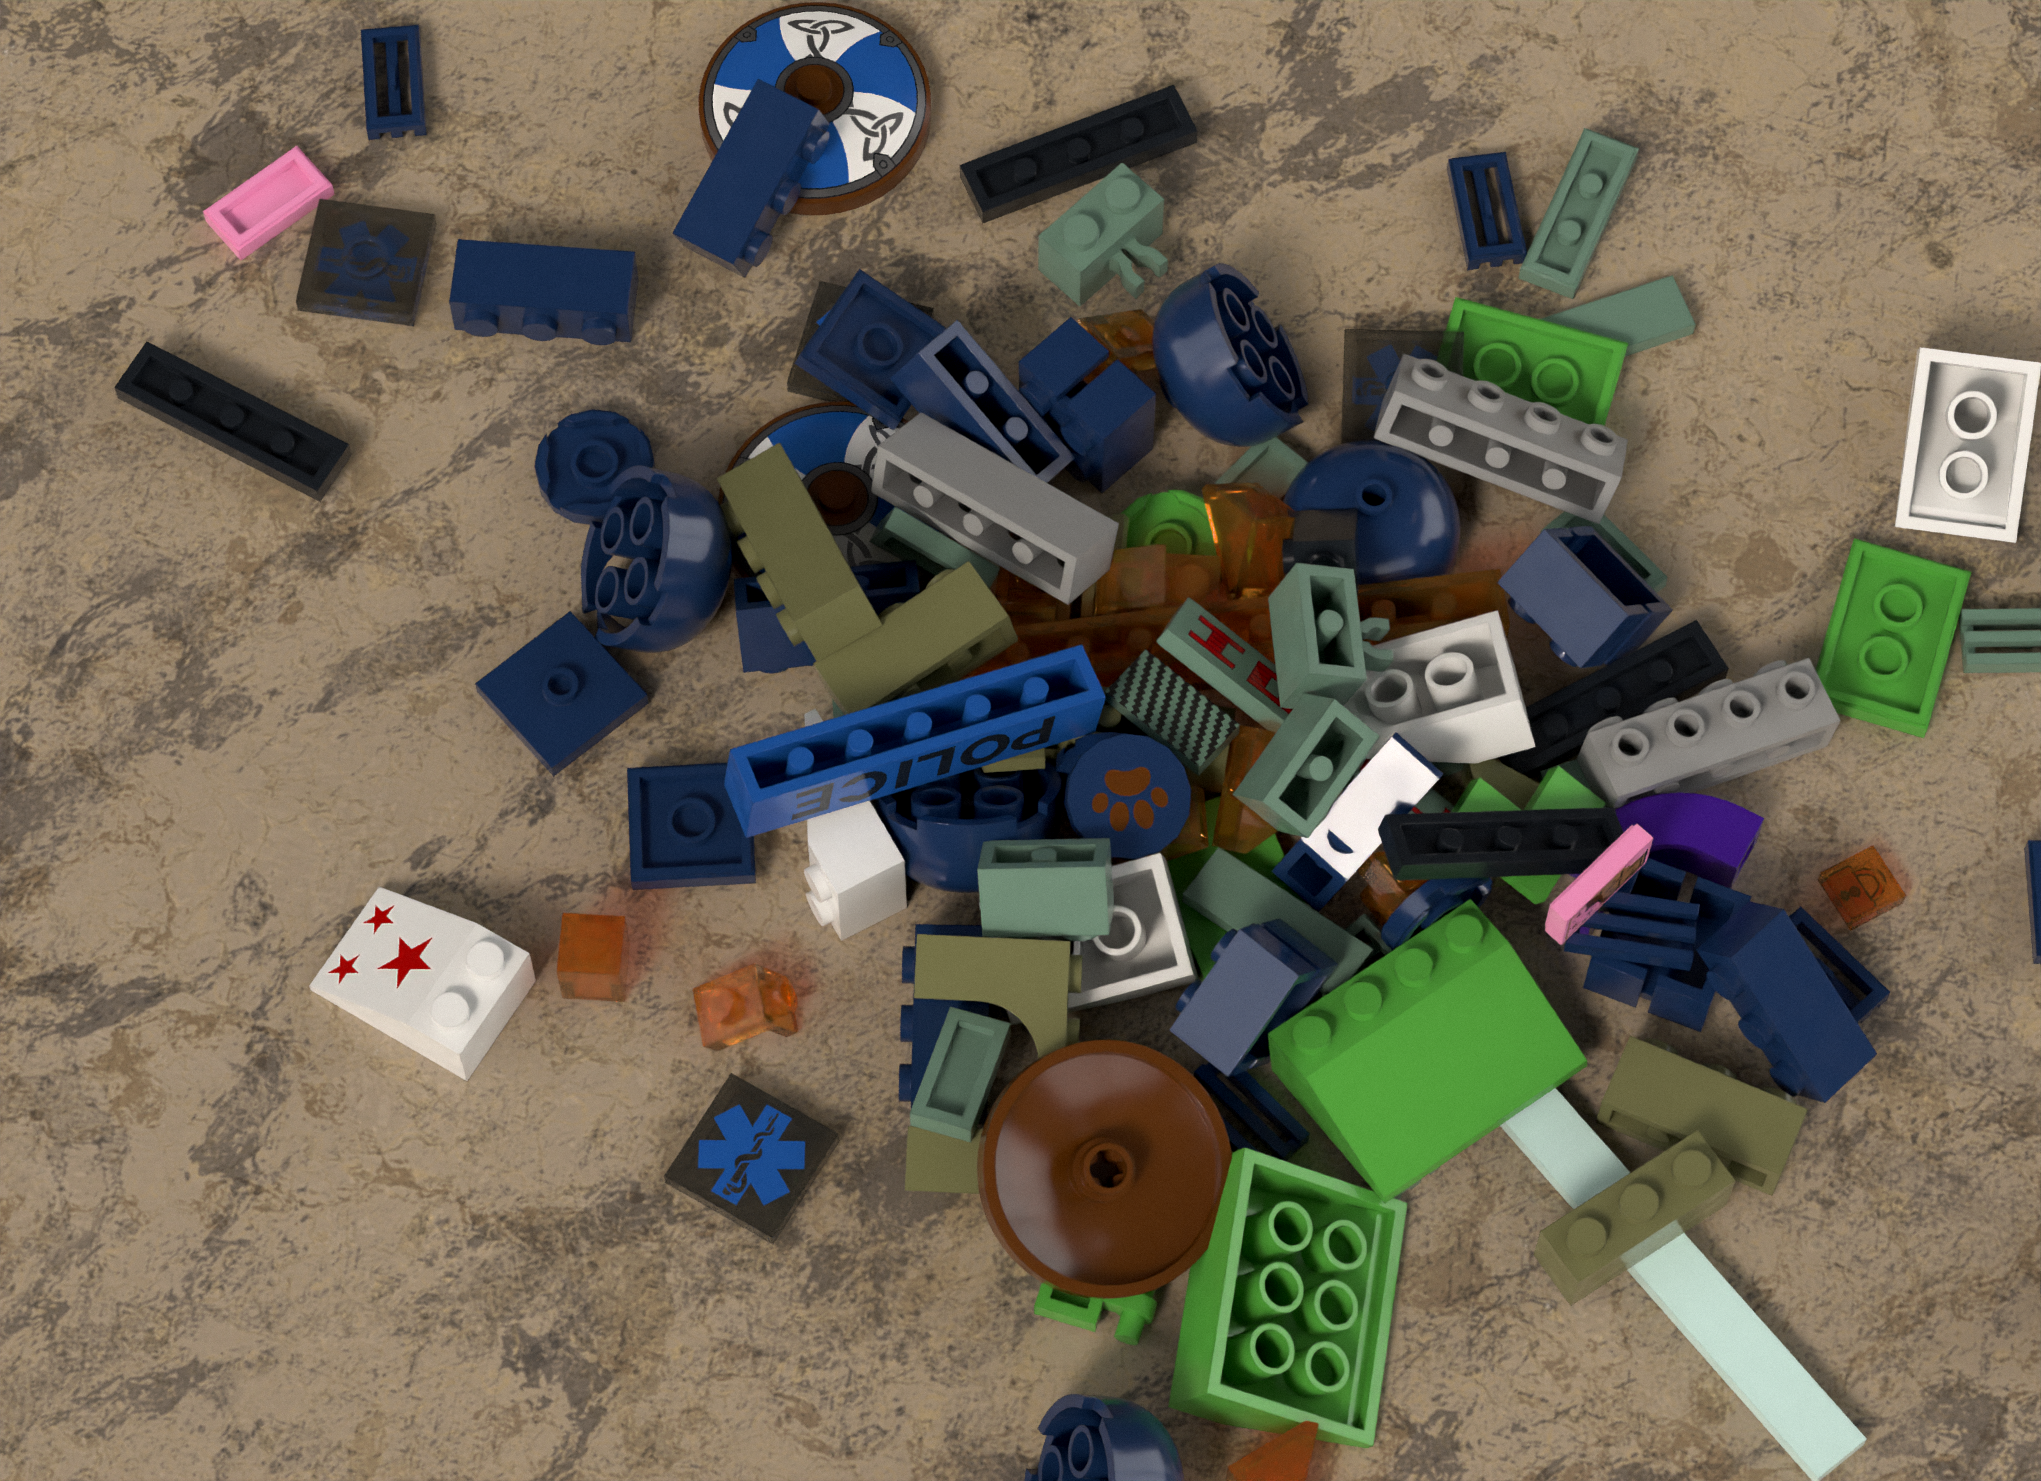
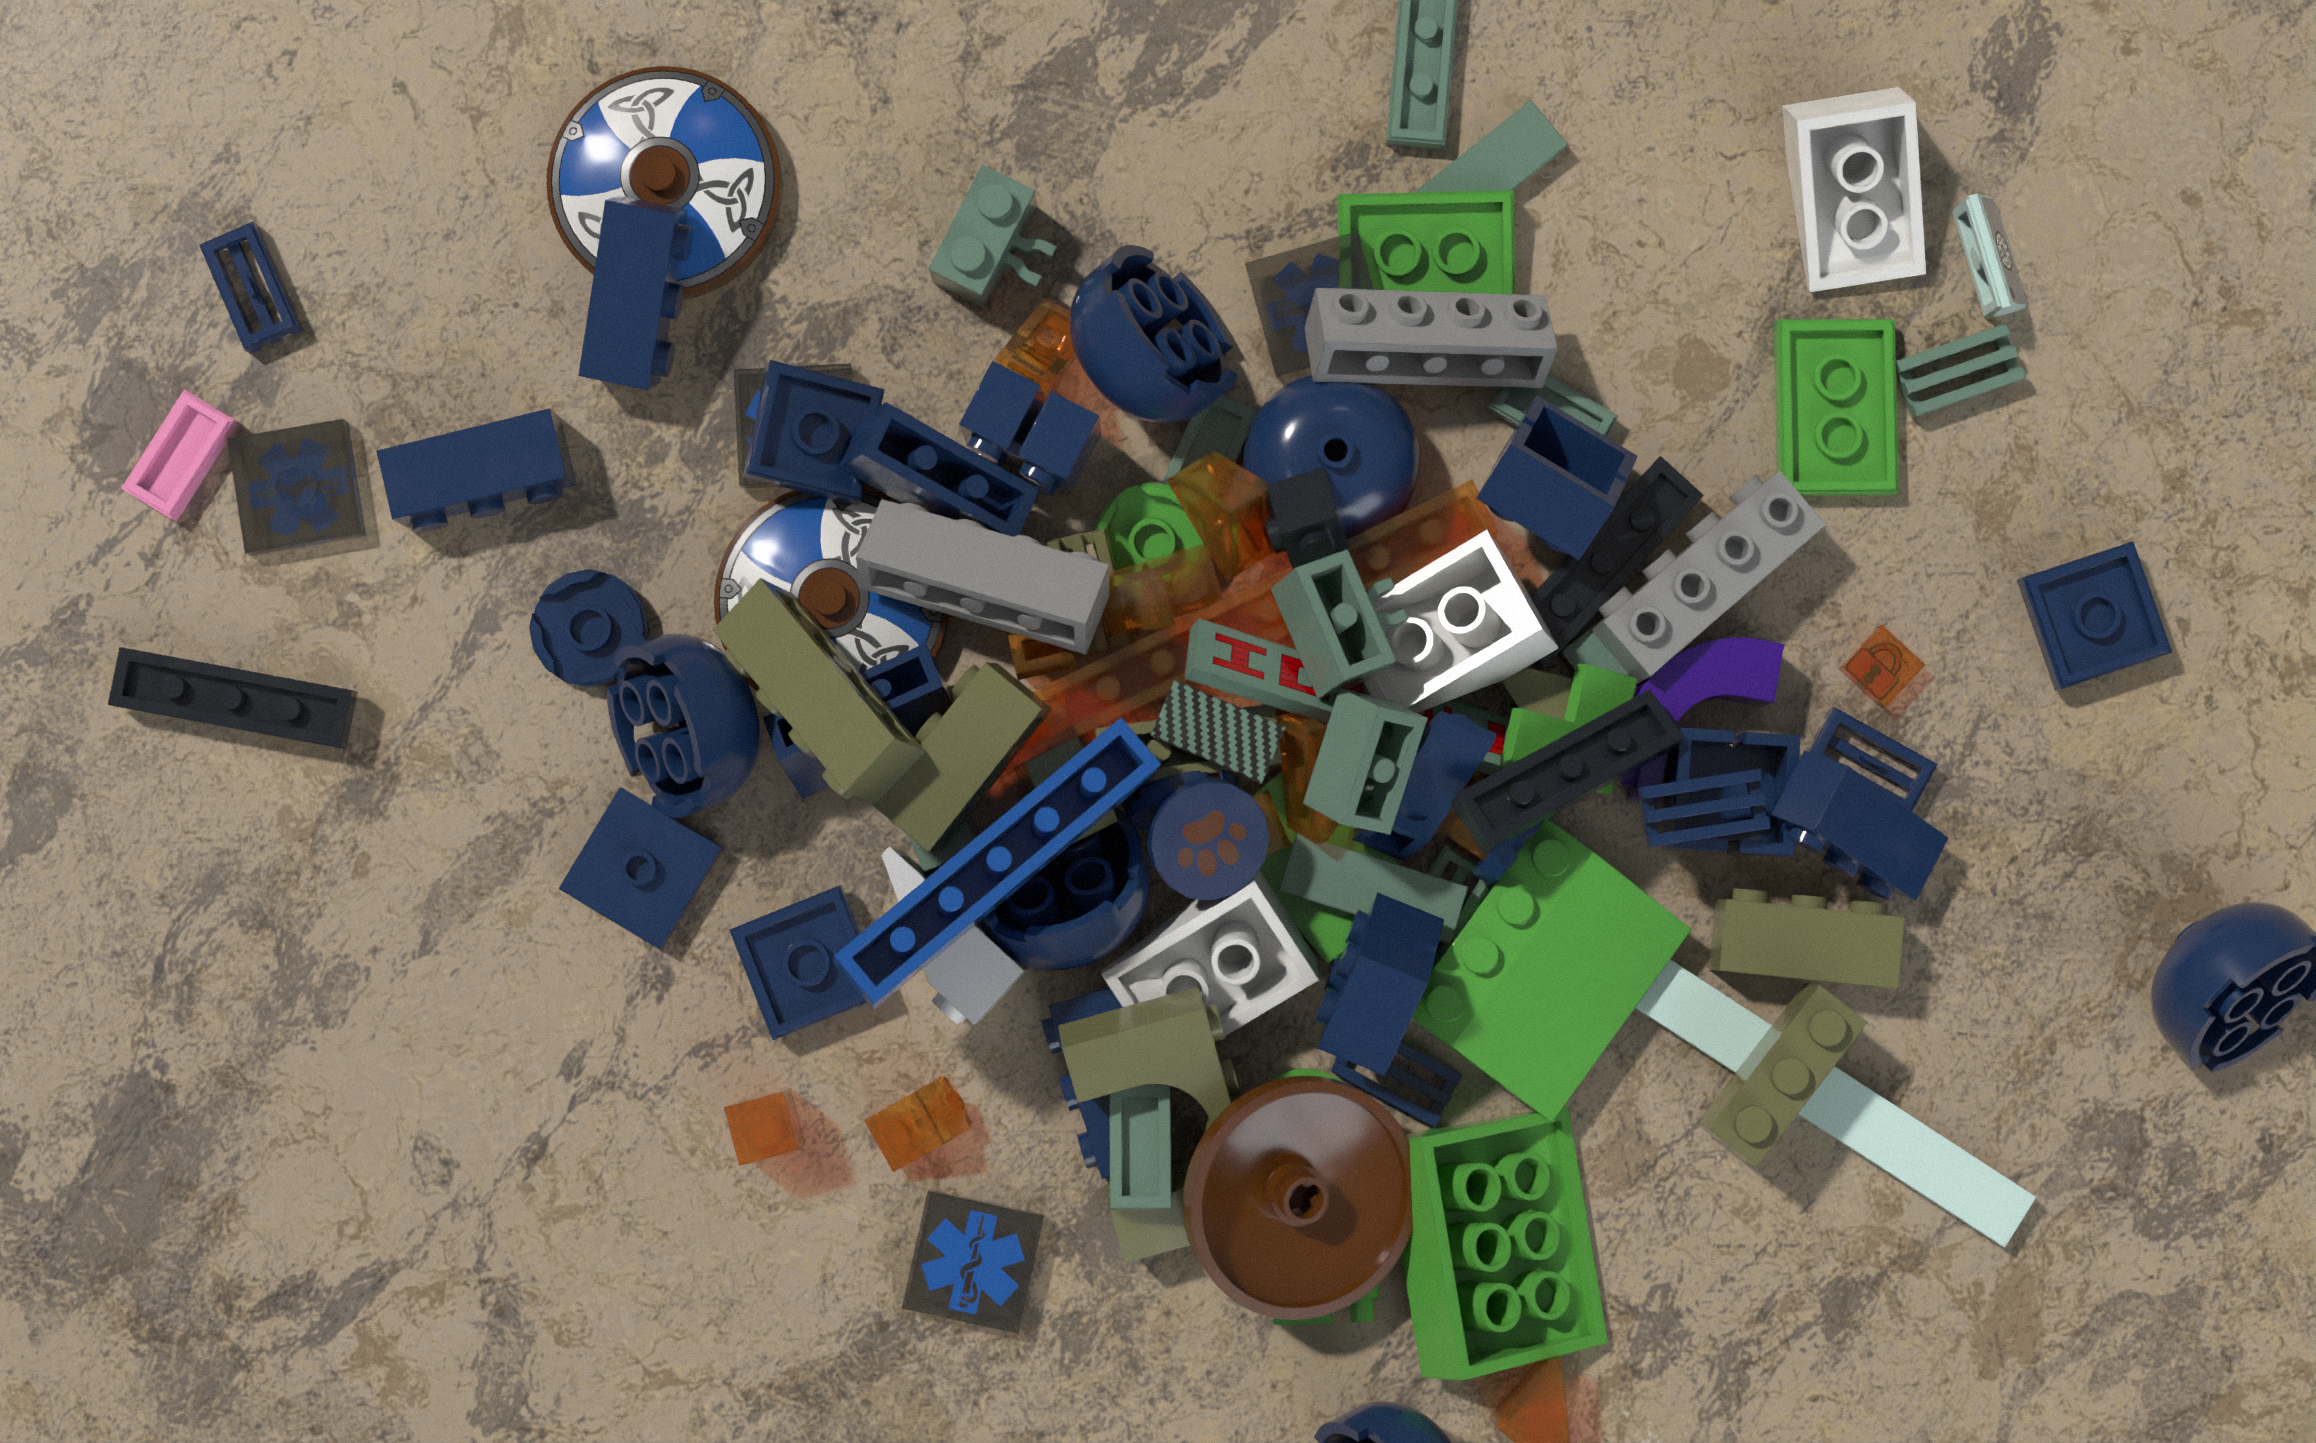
camera: 20 degrees left, 20 degrees up
(427, 979) = (617, 1194): white slope -> none
(933, 551) = (939, 629): sand green tile -> none
(1046, 888) = (1164, 958): sand green brick -> none
(1078, 153) = (932, 154): black plate -> none
(1493, 252) = (1356, 128): dark blue tile -> none
(1598, 883) = (1668, 790): bright pink tile -> none

